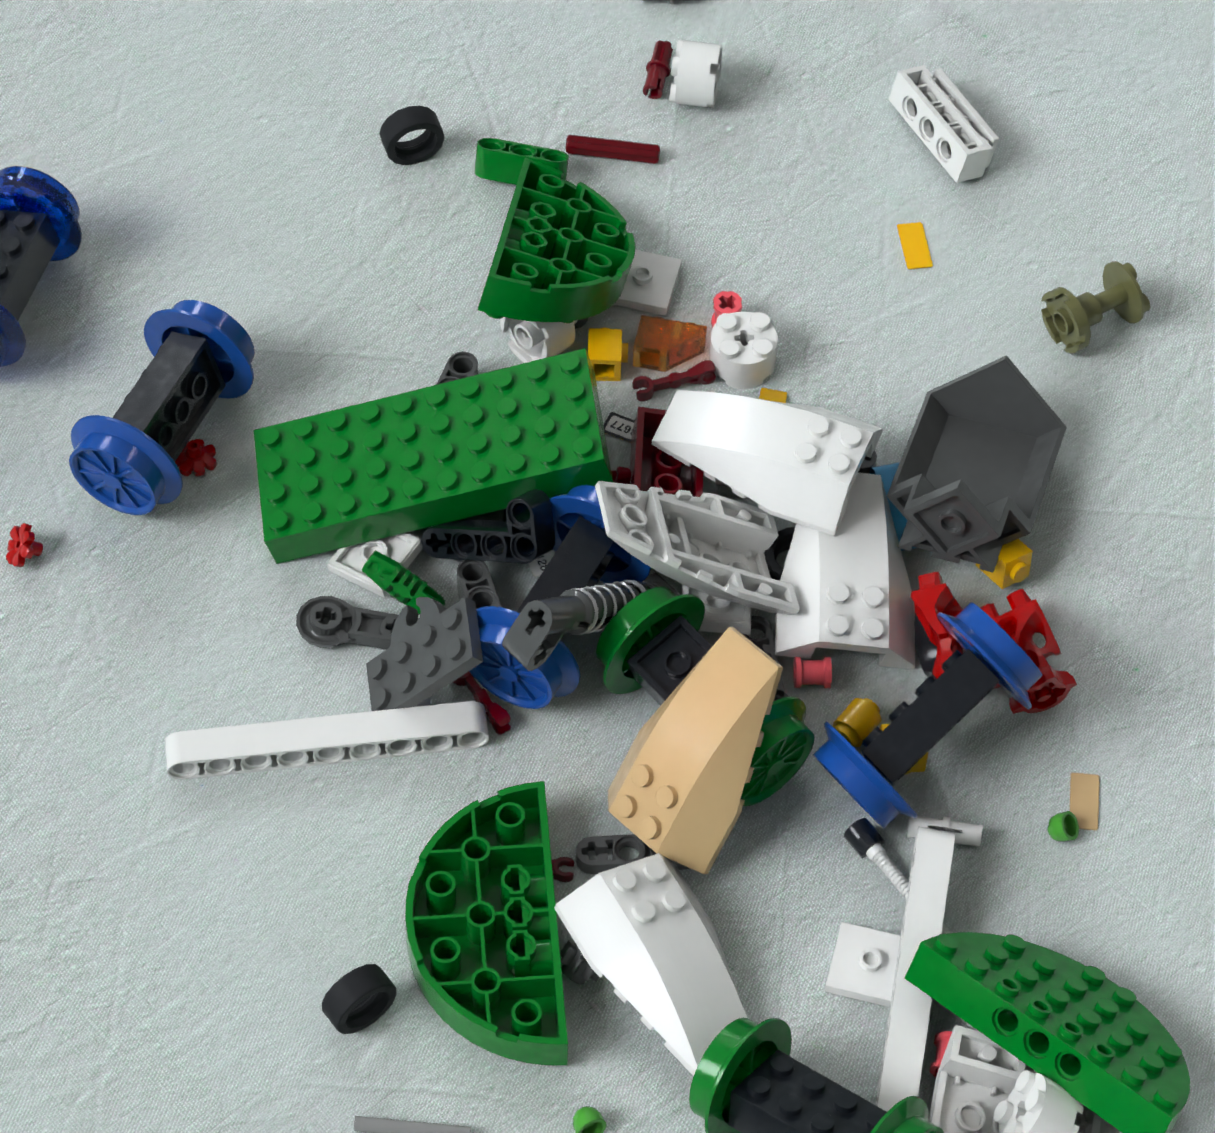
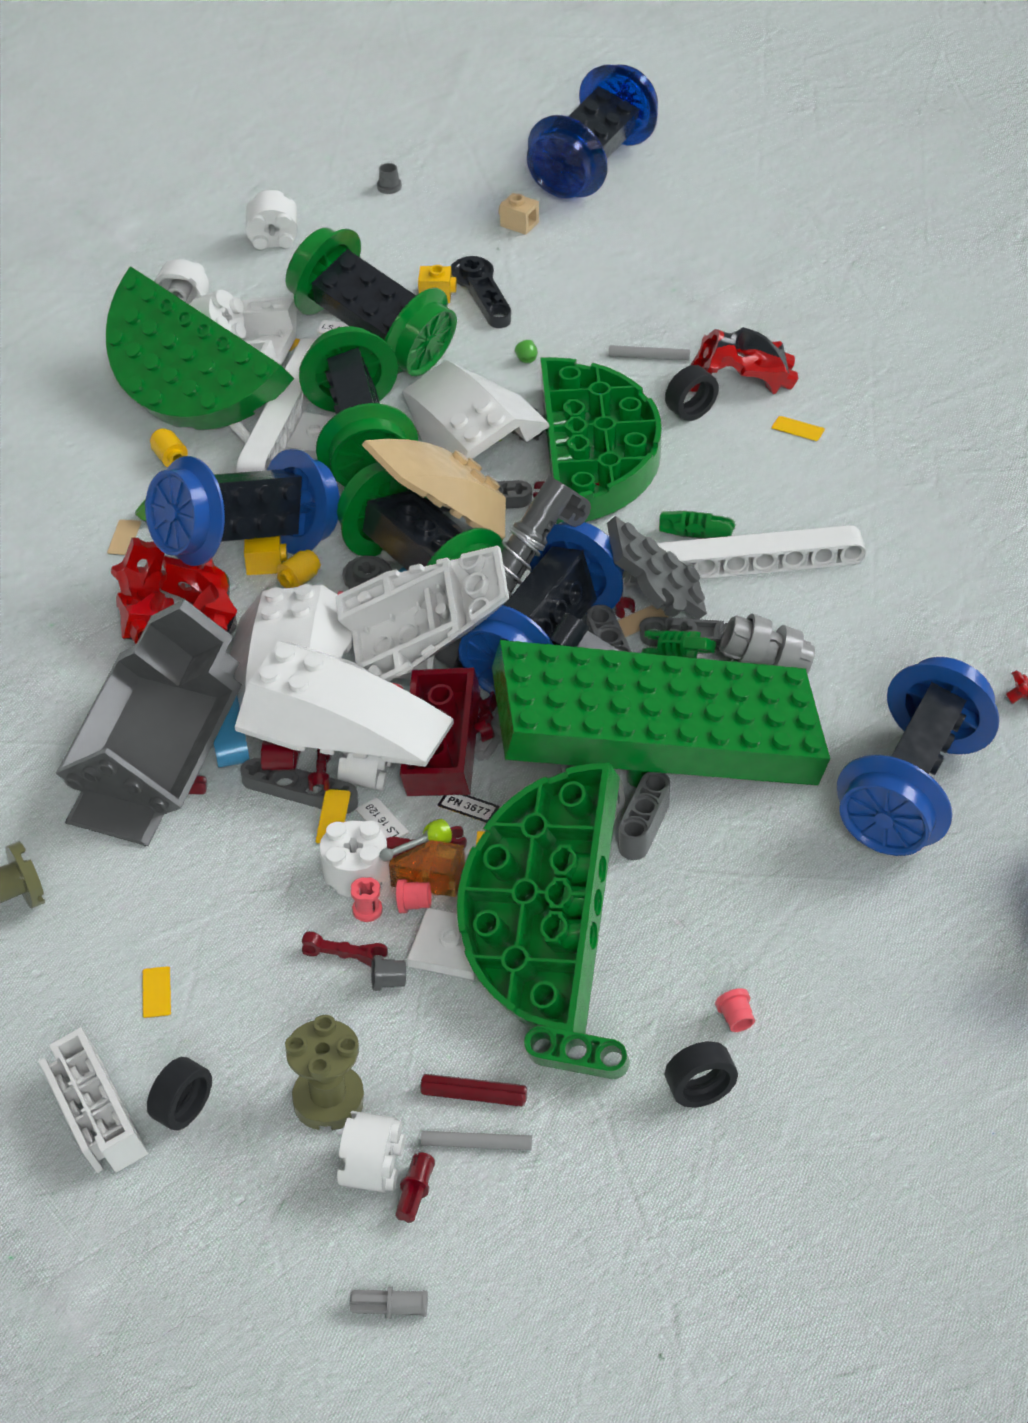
camera: 175 degrees left, 10 degrees down
(217, 982) = (798, 428): none -> yellow sticker
(251, 1073) = (759, 360): none -> red hips
(312, 568) = (755, 643): none -> light grey piece
(368, 791) = (695, 524): none -> green hinge
(375, 209) = (736, 1009): none -> coral piece
(608, 111) = (476, 1140): none -> light grey bar
(664, 363) = (436, 830): none -> hinge
(681, 310) = (412, 895): none -> coral piece
(698, 244) = (387, 973): none -> dark grey piece
(741, 140) = (326, 1084): none -> olive piece
(771, 276) = (314, 944): none -> dark red piece
(829, 991) = (350, 375): none -> green brick
(869, 124) = (179, 1093): none -> black tyre
(1060, 928) = (167, 446): none -> yellow brick

